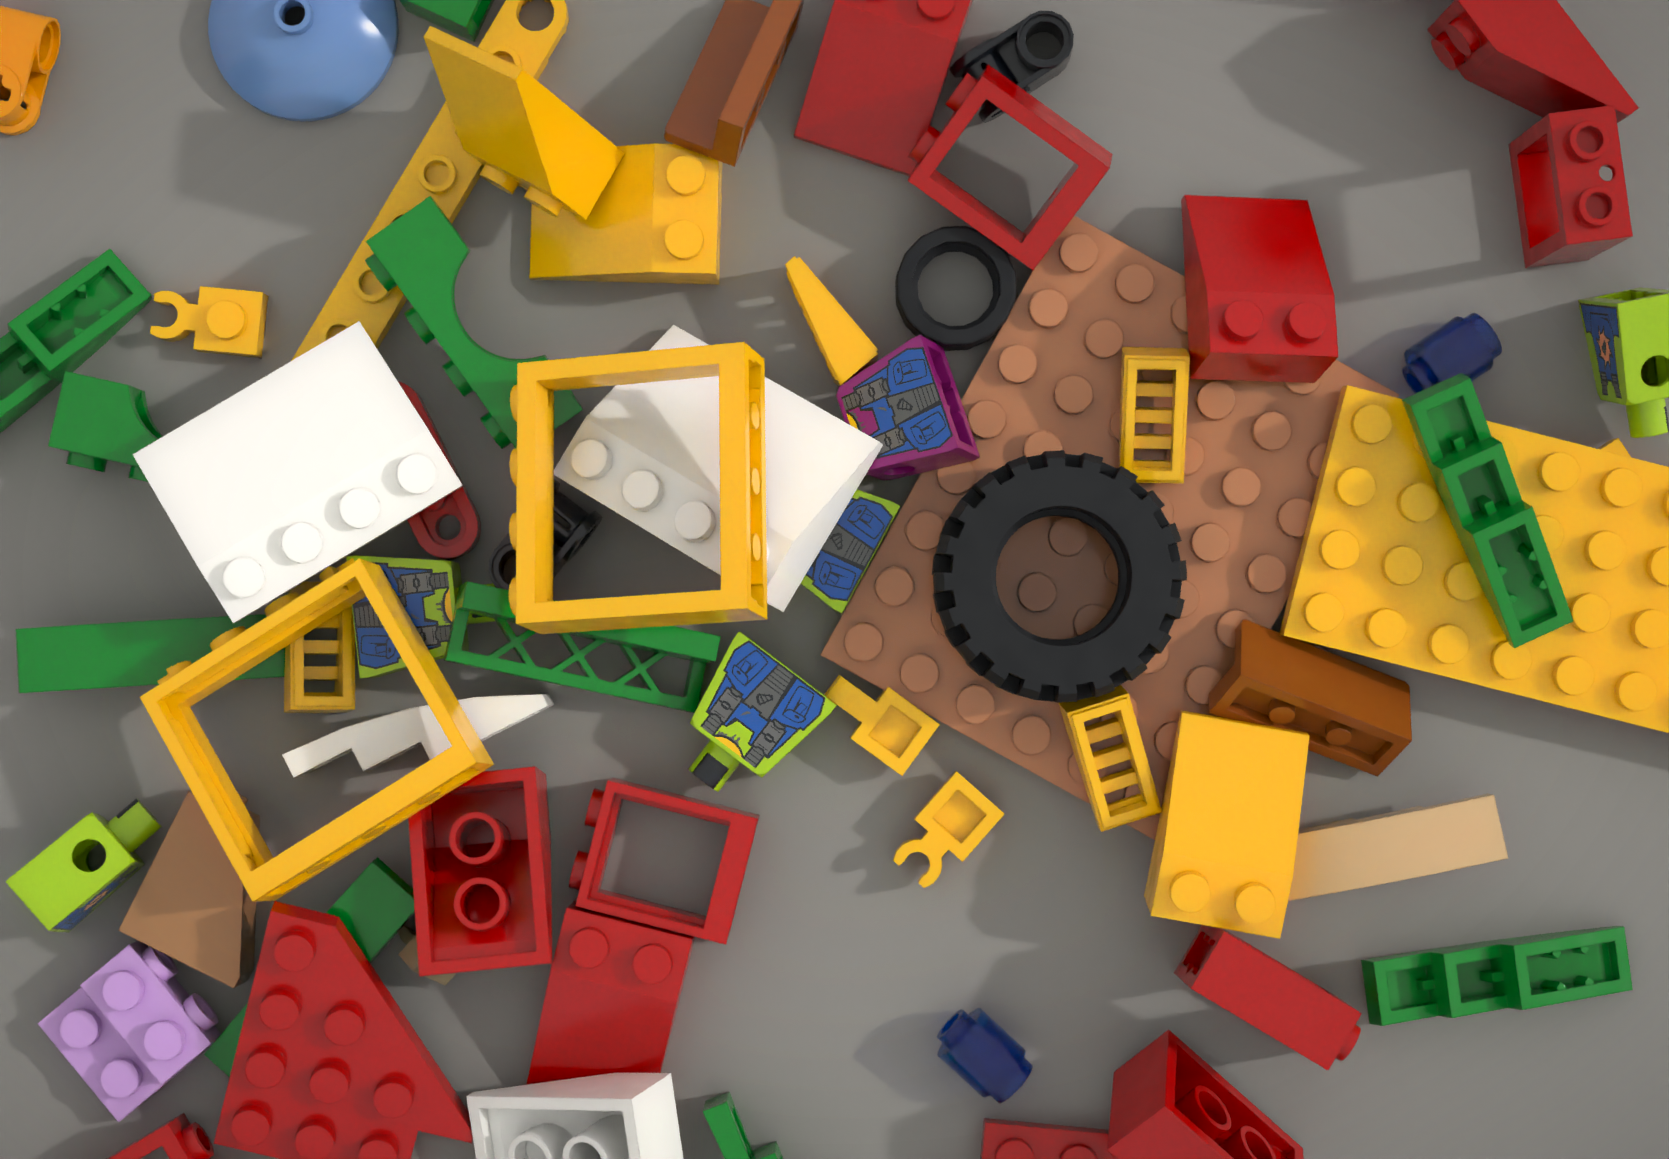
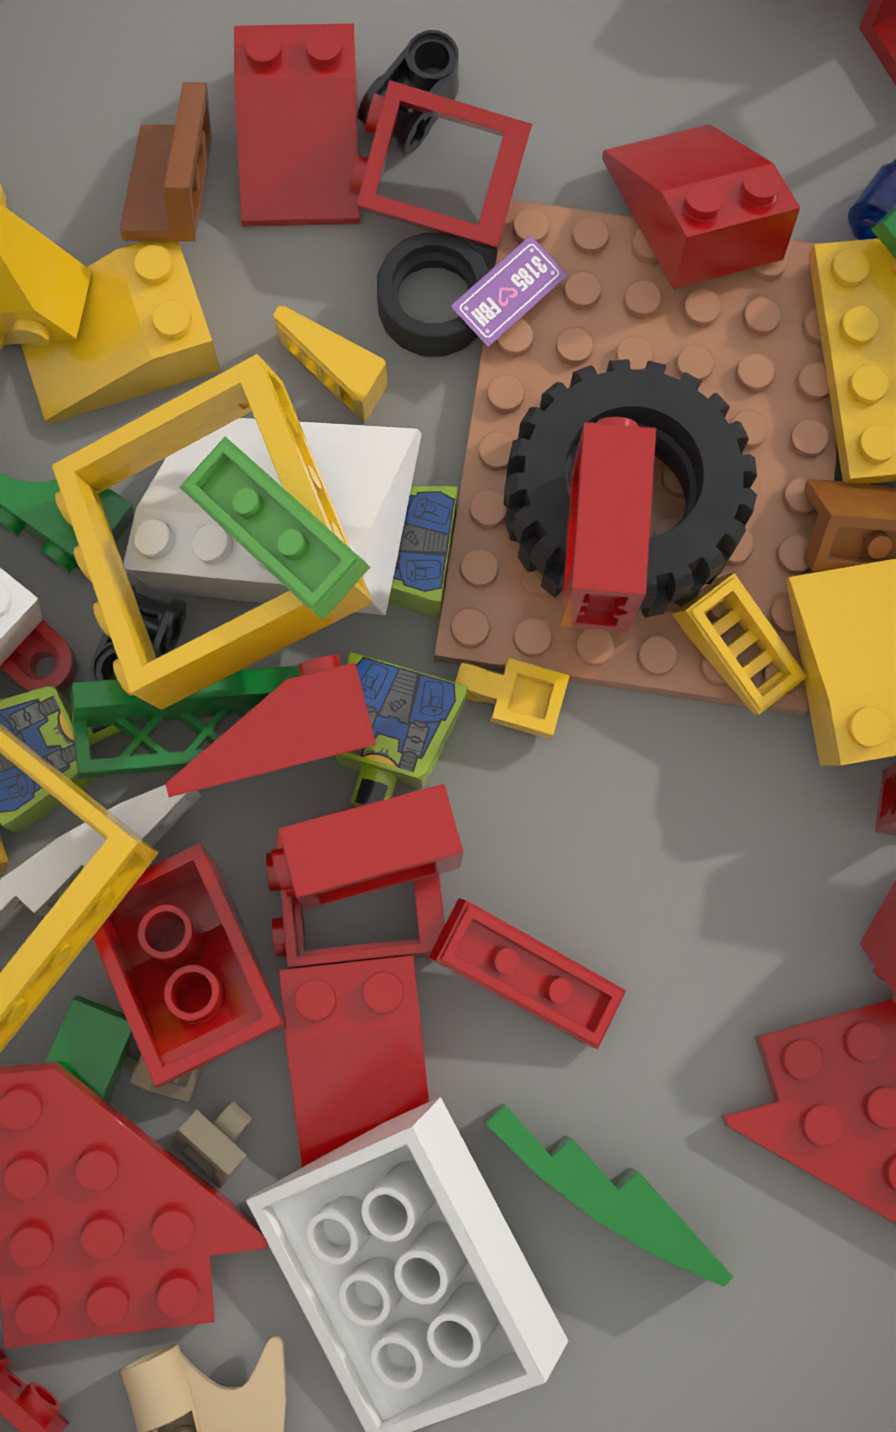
camera: 25 degrees left, 10 degrees down
(453, 1033) = (212, 1145): none -> dark tan tile
(655, 703) = (293, 725): none -> red slope
(681, 840) = (368, 848): none -> red window
(697, 527) = (274, 528): none -> bright green tile
(792, 990) = (527, 973): none -> red tile
(911, 409) = (440, 399): torso -> none
(954, 821) = (618, 763): yellow plate -> none
(983, 1054) = (732, 970): clear blue brick -> none
(1006, 635) = (608, 525): none -> red window
(1028, 318) = (509, 290): none -> medium lavender sticker
(1154, 359) = (660, 281): yellow slope -> none

